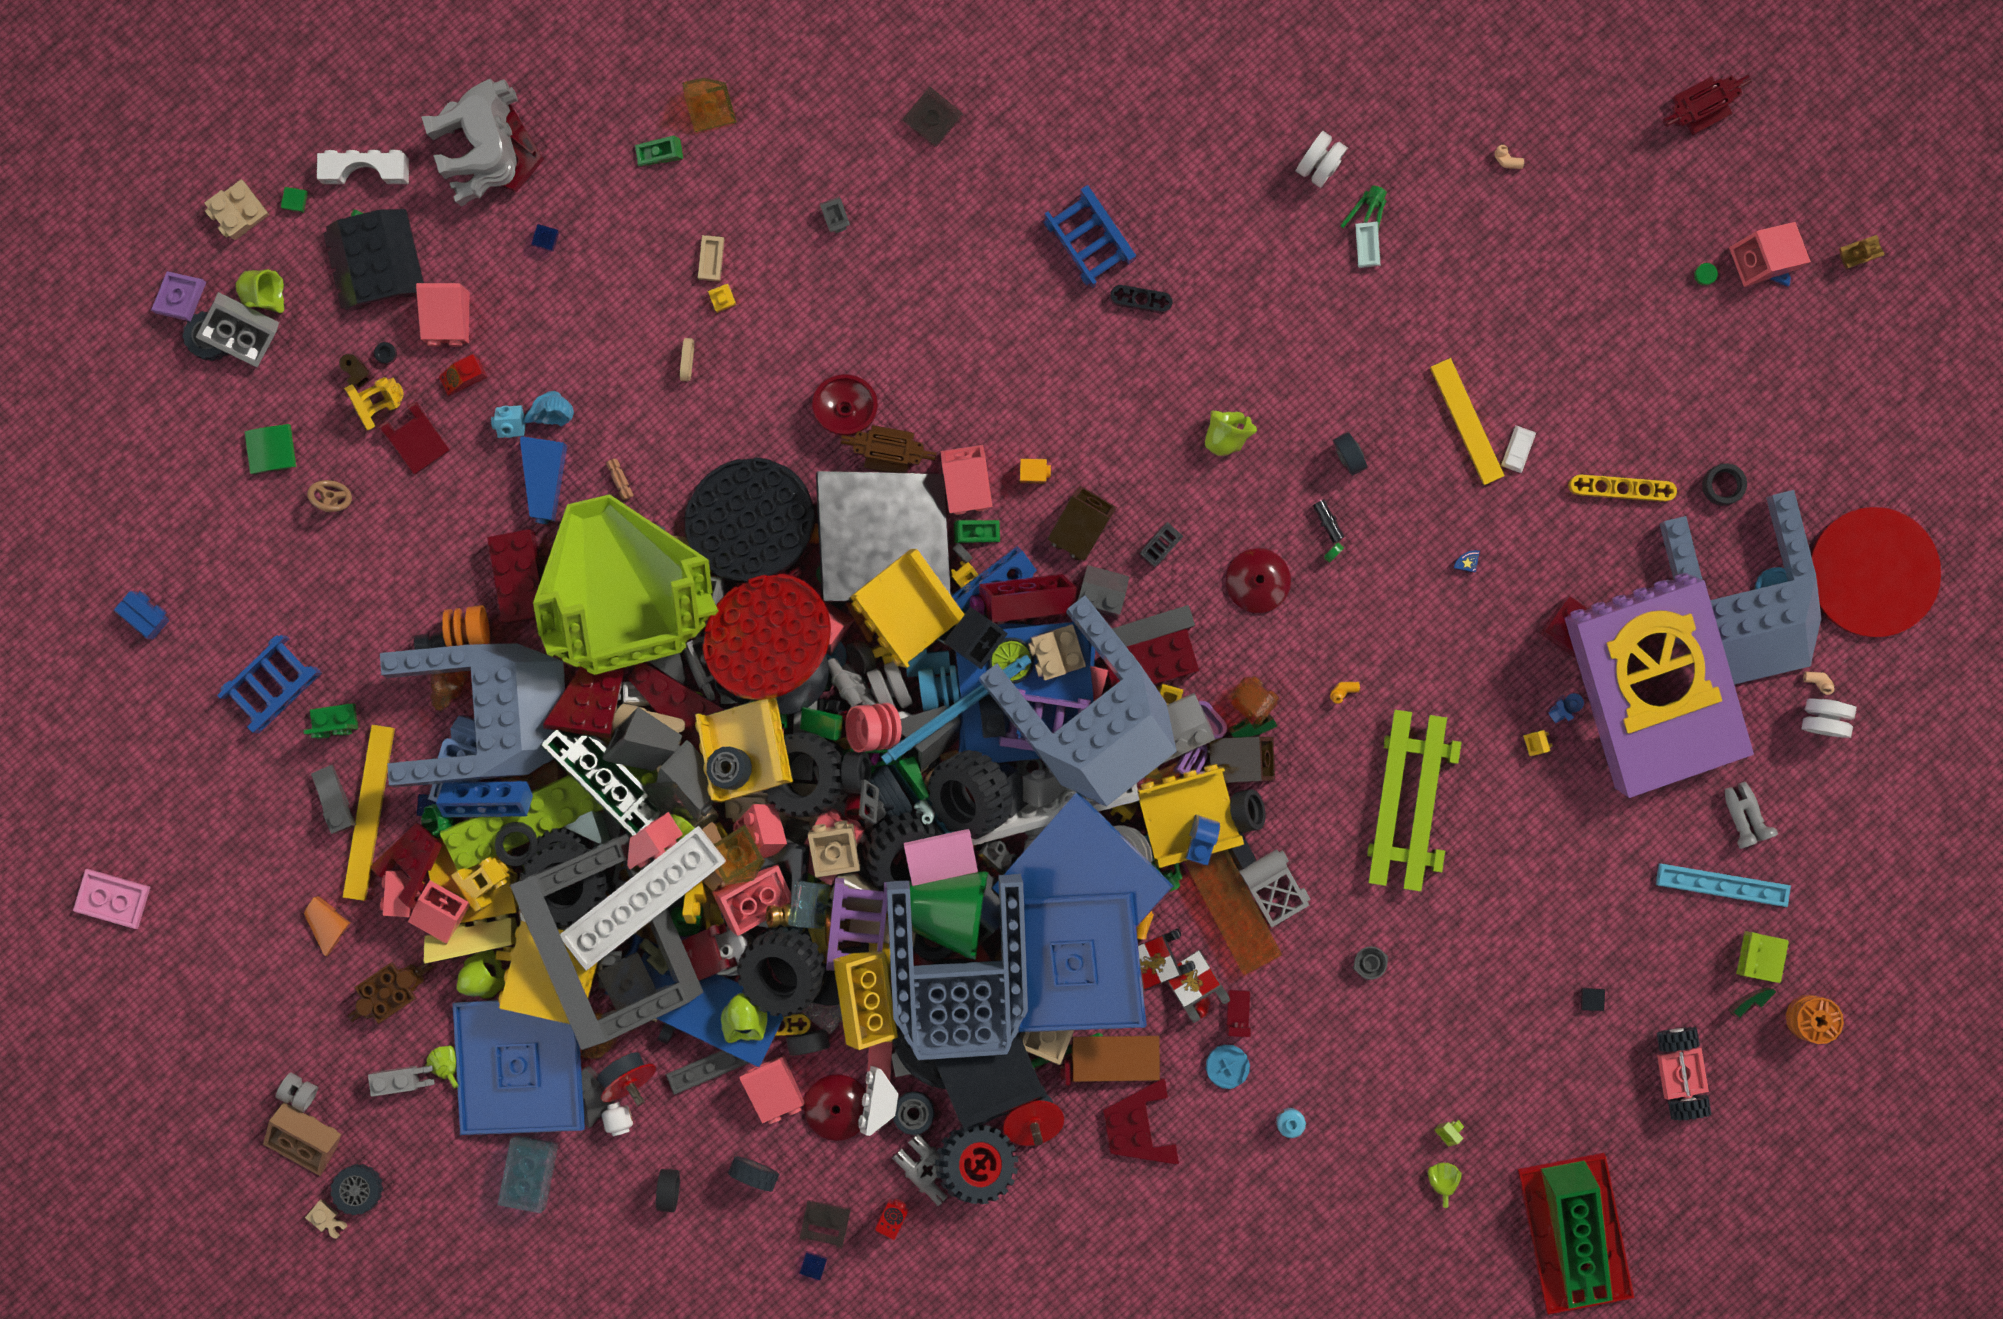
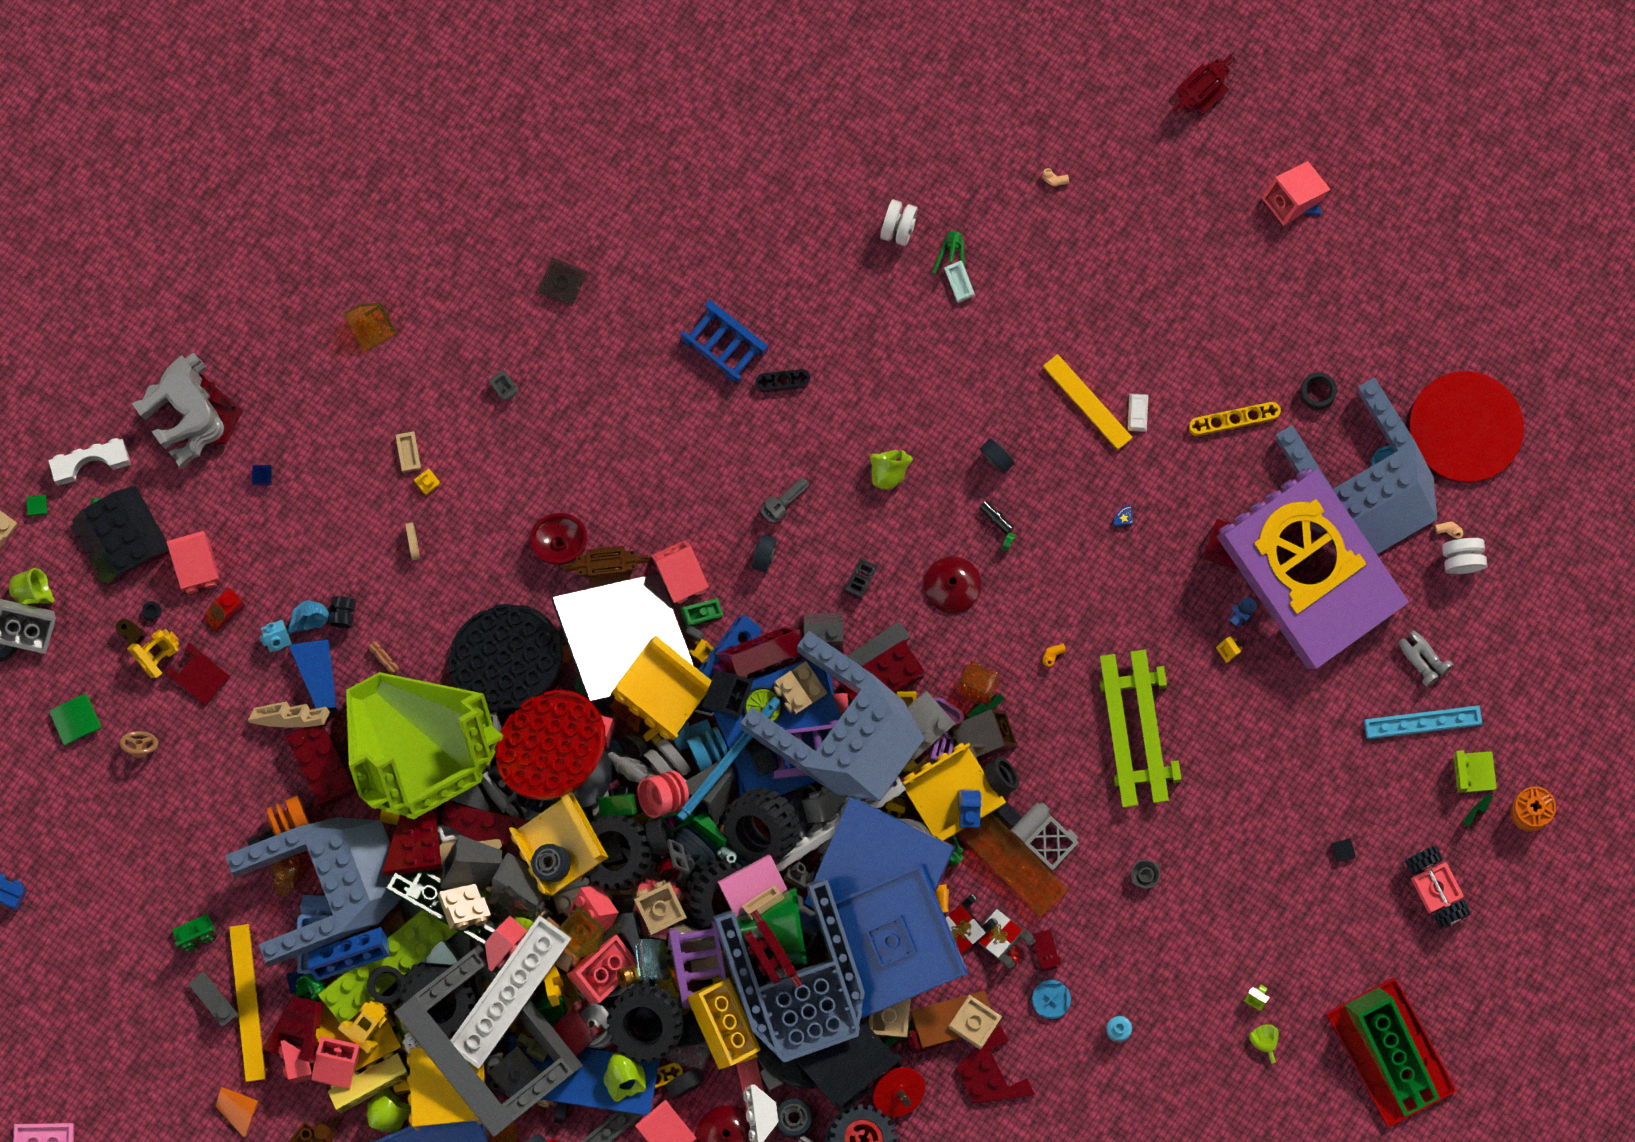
camera: 20 degrees left, 10 degrees down
(275, 705) = (140, 934): blue fence -> none
(495, 514) = (289, 717): none -> tan slope
(588, 415) = (342, 612): none -> black wheel
(621, 788) = (464, 907): none -> plate
(659, 151) = (338, 376): green slope -> none
(945, 954) = (769, 940): none -> dark red piece
(946, 880) = (763, 901): none -> tan tile
(1034, 471) = (735, 548): light orange brick -> none
(1063, 487) = (764, 553): none -> black wheel
(1081, 523) = (788, 580): dark brown slope -> none
(1089, 441) = (777, 506): none -> dark grey piece
(1138, 1069) = (974, 1022): none -> tan tile
(1705, 274) = (1248, 224): green tile -> none
(1861, 252) = (1370, 169): pearl gold hips -> none

